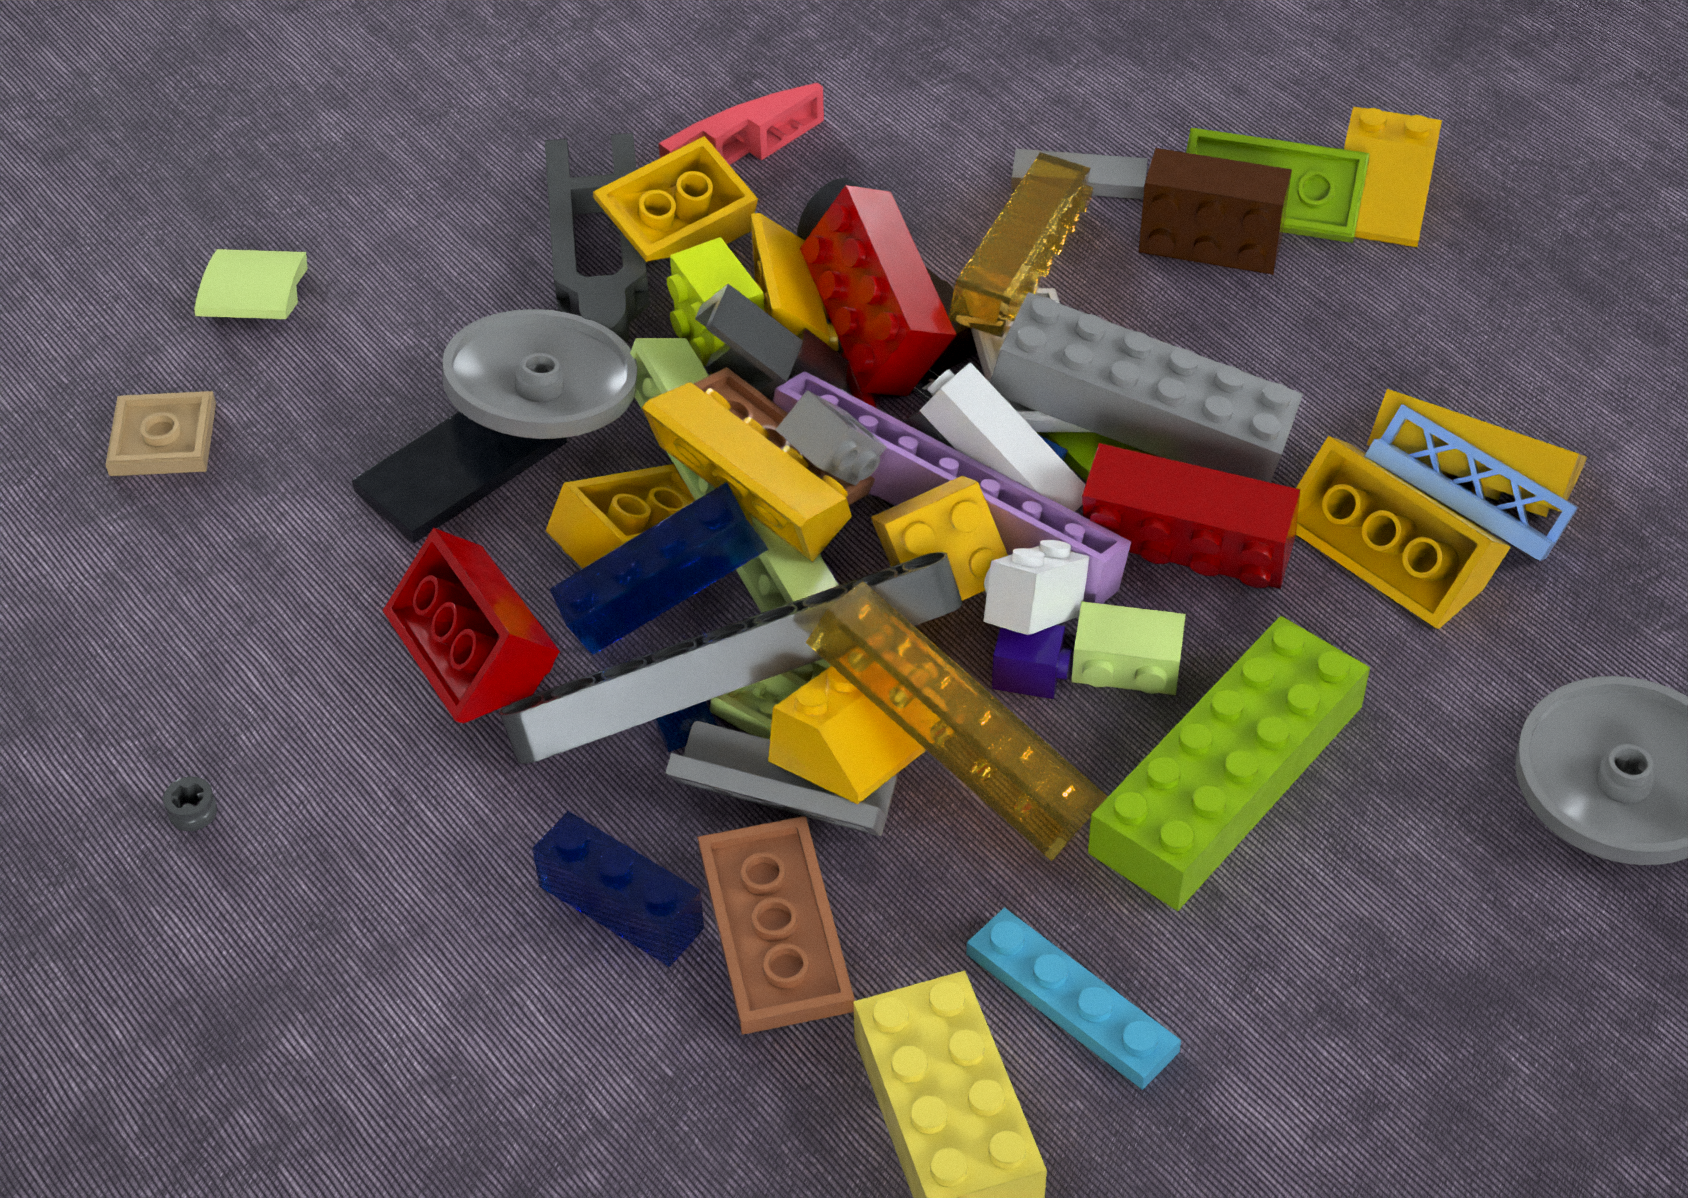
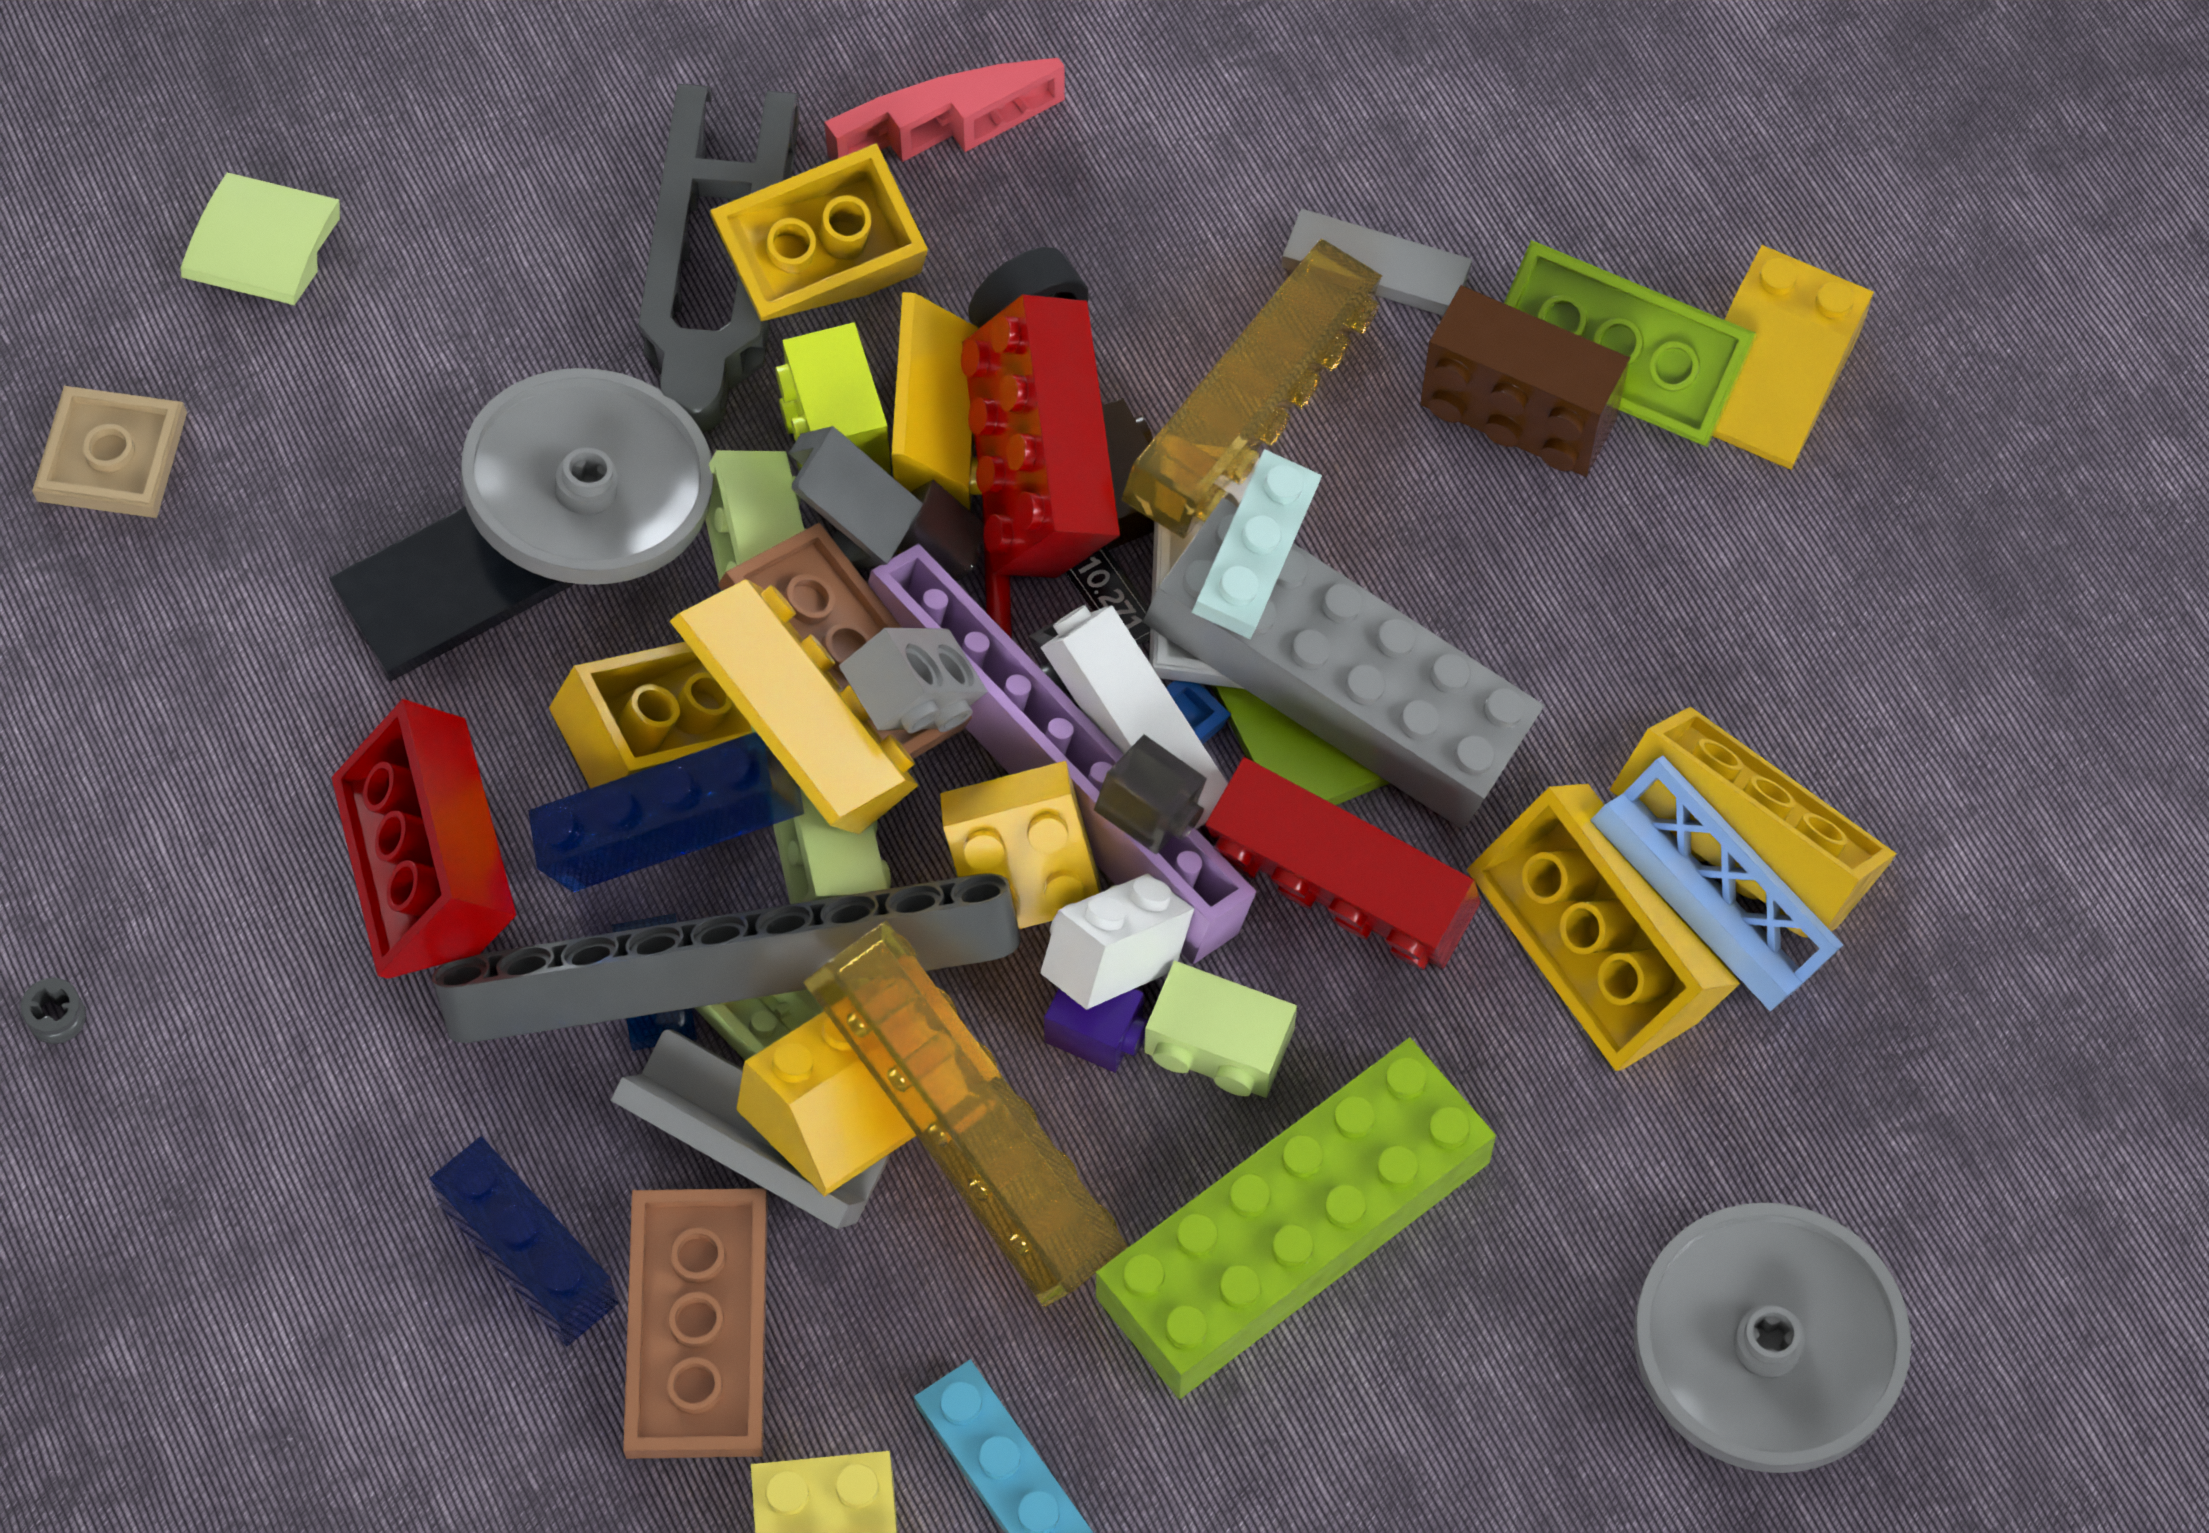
camera: 10 degrees right, 15 degrees up
(1035, 484) = (1151, 795): none -> clear smoke brick
(1065, 310) = (1256, 544): none -> light aqua plate

